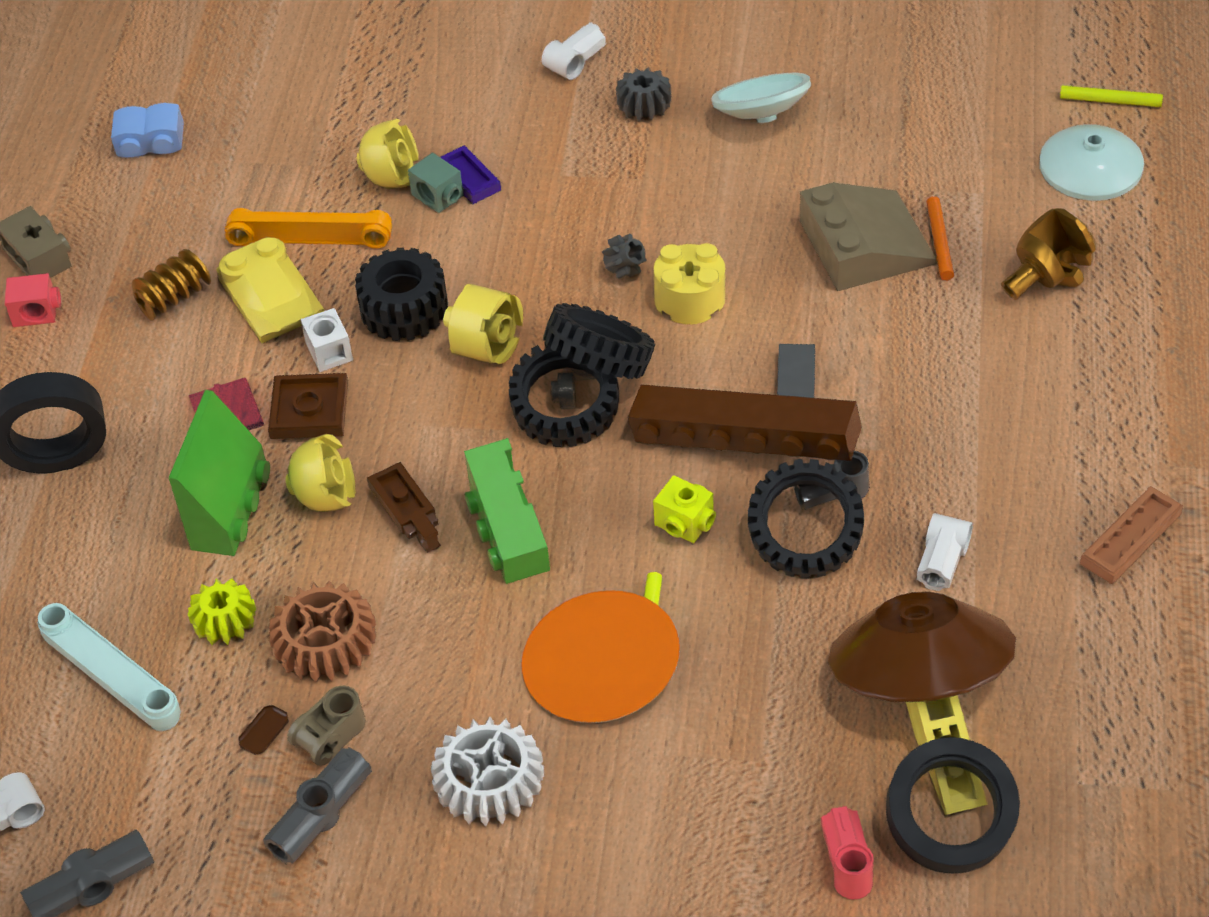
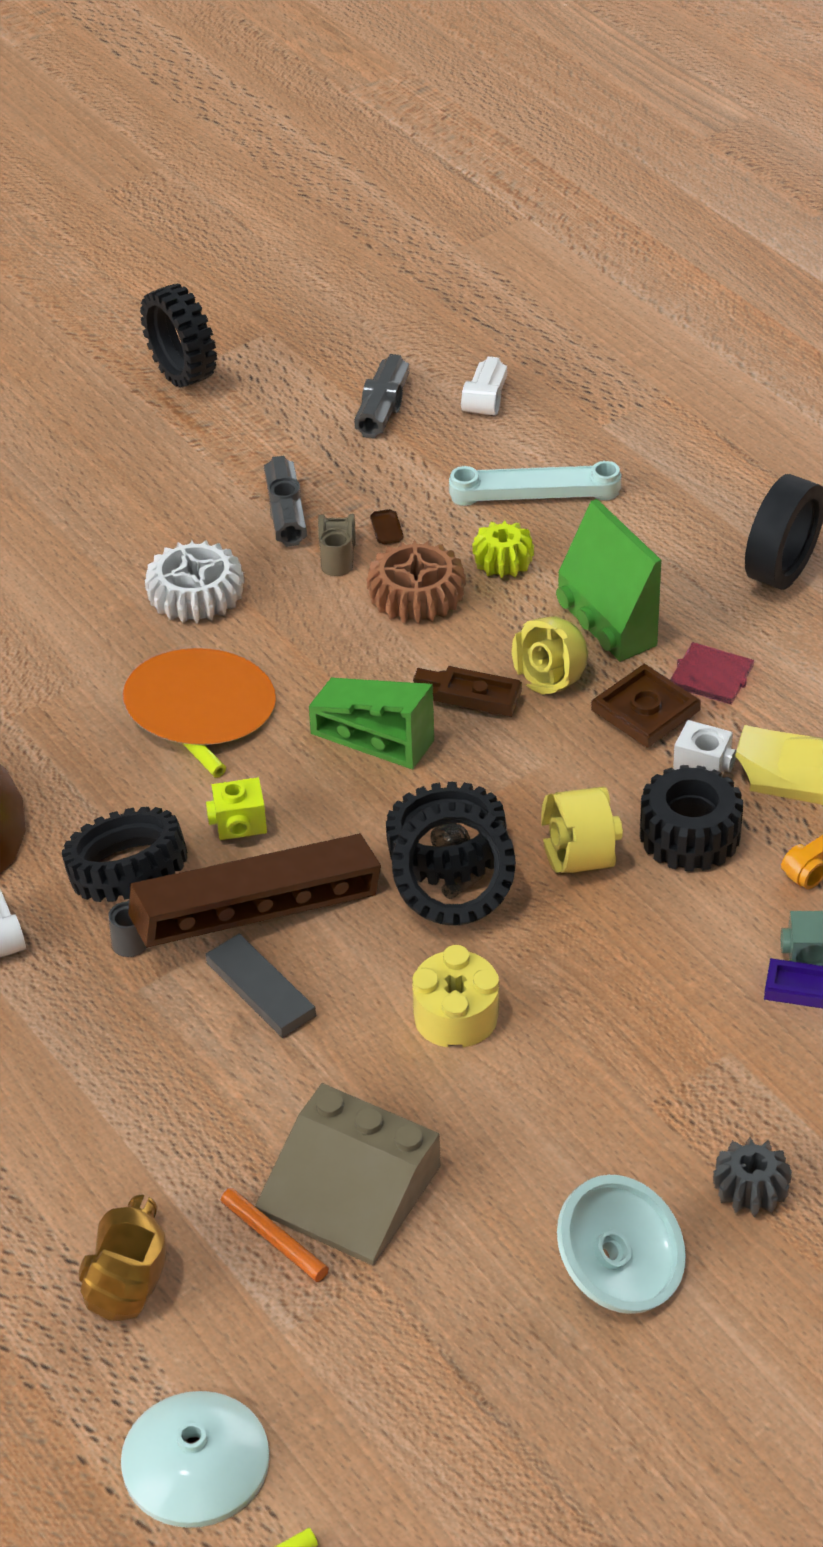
camera: 135 degrees right, 5 degrees down
(624, 256) = (546, 984): dark grey gear -> none

